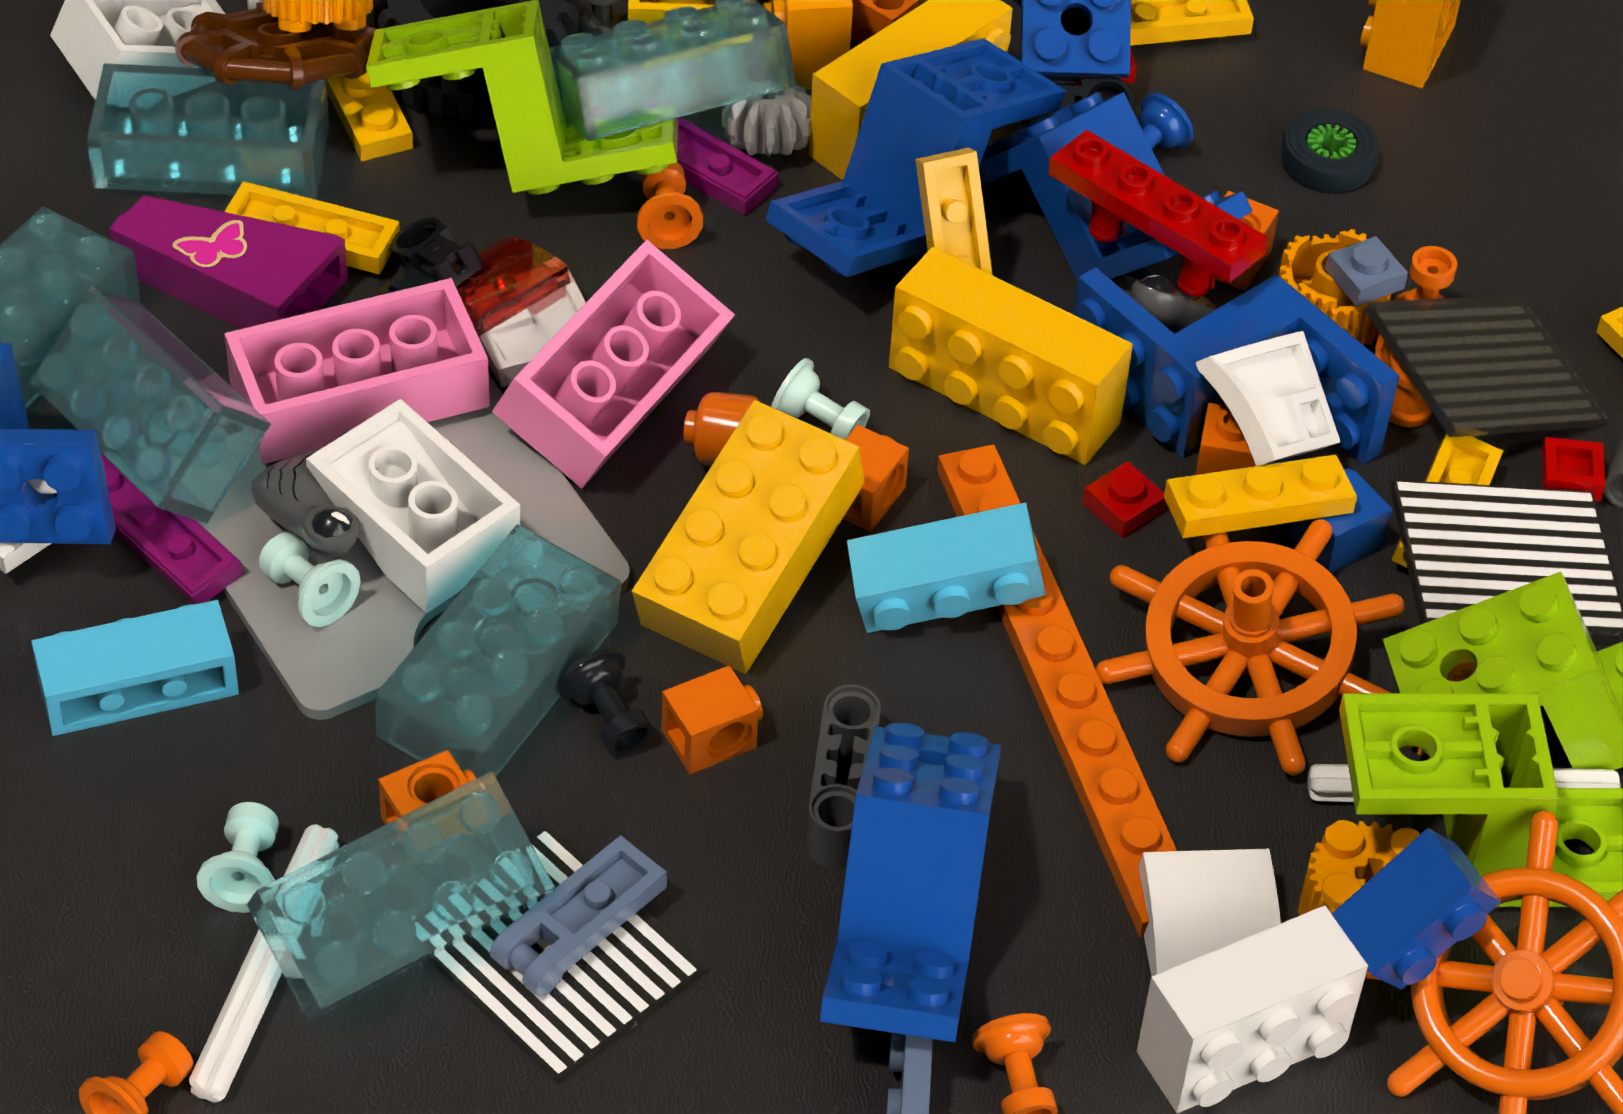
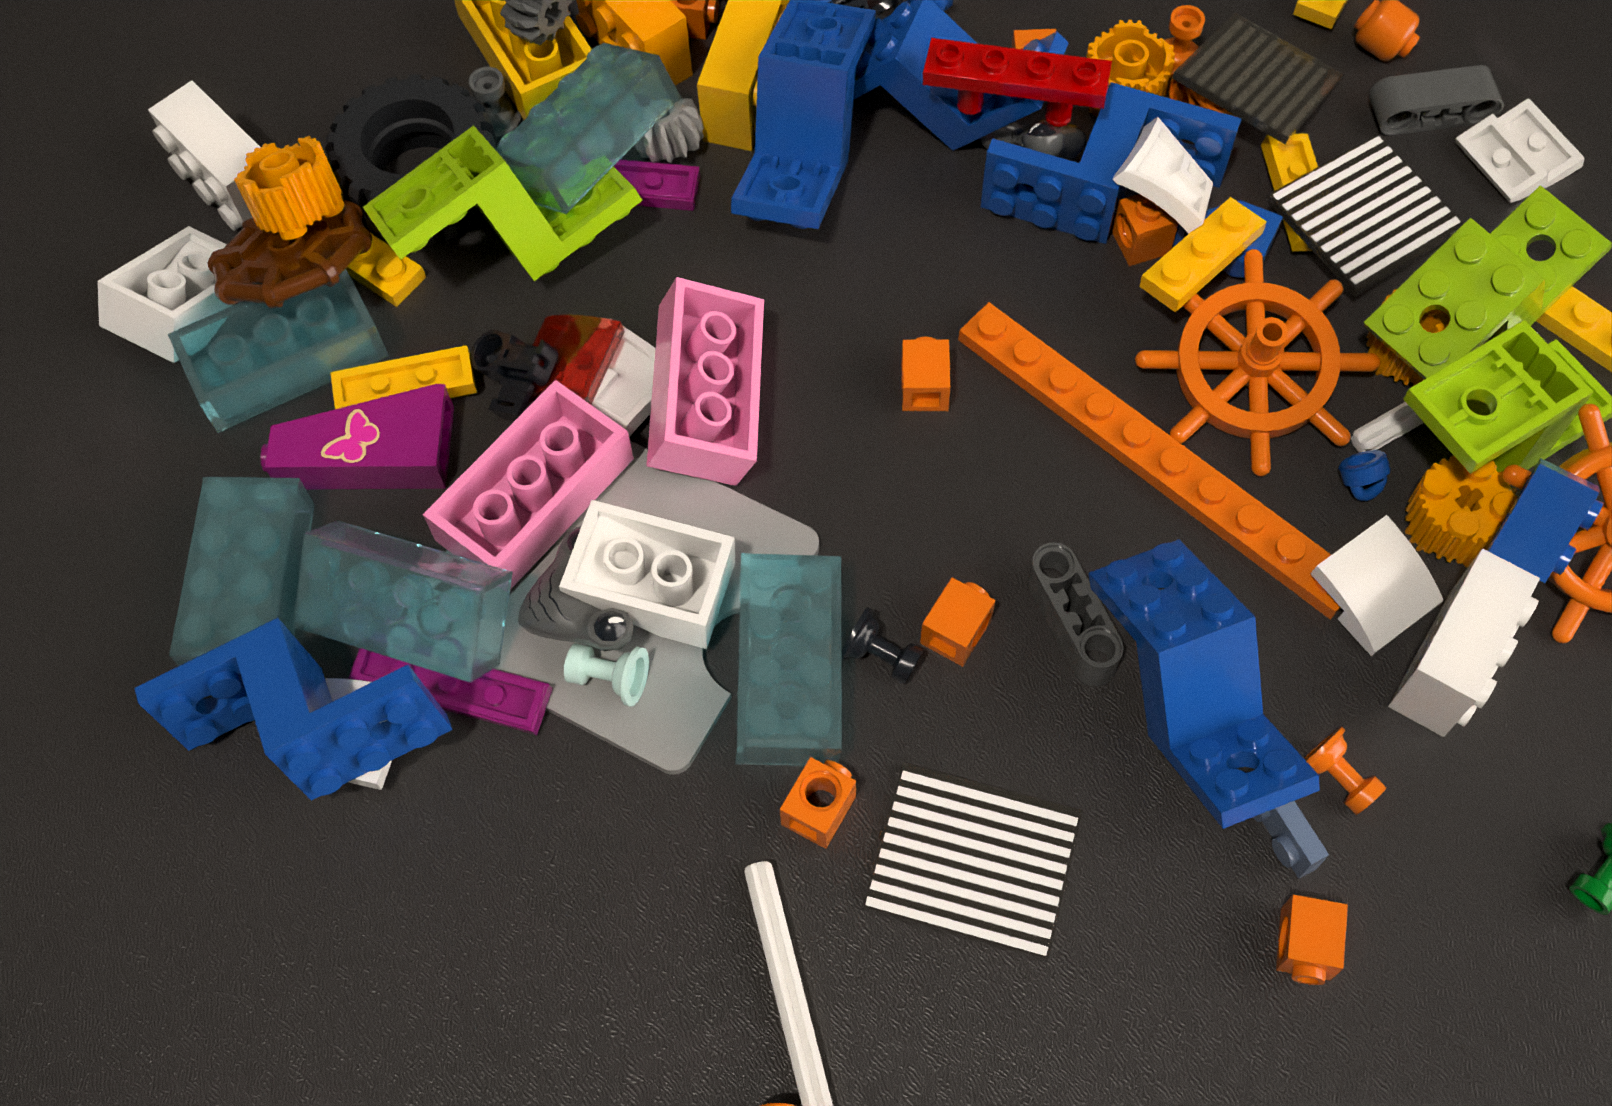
camera: 25 degrees left, 15 degrees up
(135, 667) = (531, 812): medium azure brick -> none
(236, 875) = (727, 939): light aqua piece -> none
(399, 895) = (863, 896): clear light blue brick -> none
(579, 914) = (982, 826): sand blue plate -> none
(668, 216) = (652, 241): orange piece -> none
(714, 423) = (813, 389): orange head -> none
(749, 536) = (896, 467): yellow brick -> none
(801, 394) = (841, 334): light aqua piece -> none
(946, 568) = (1037, 418): medium azure brick -> none
(954, 206) = (872, 159): yellow plate -> none
(1009, 355) = (964, 231): yellow brick -> none
(1124, 499) = (1096, 296): red plate -> none
(1291, 803) = (1365, 469): none -> blue tile
(1366, 271) = (1156, 48): sand blue plate -> none
(1573, 465) = (1353, 123): red plate -> none

